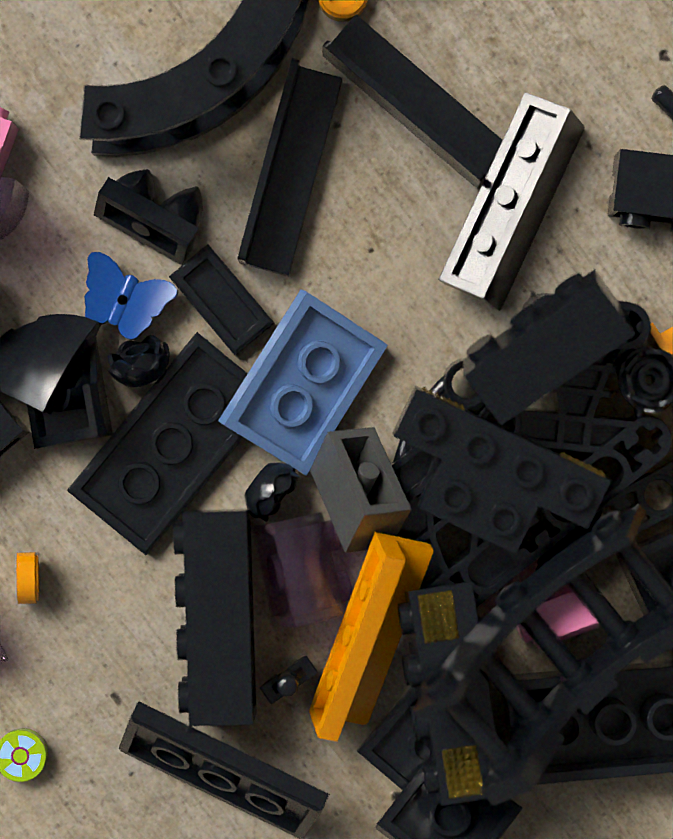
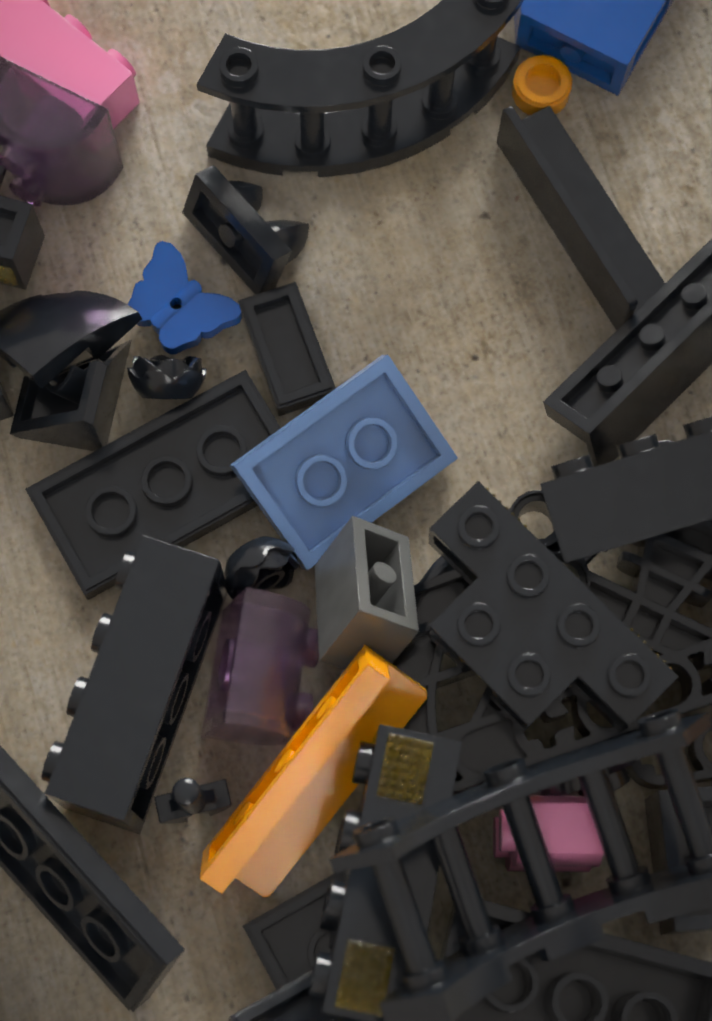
camera: 15 degrees right, 15 degrees down
(289, 169) = (413, 236): black panel -> none

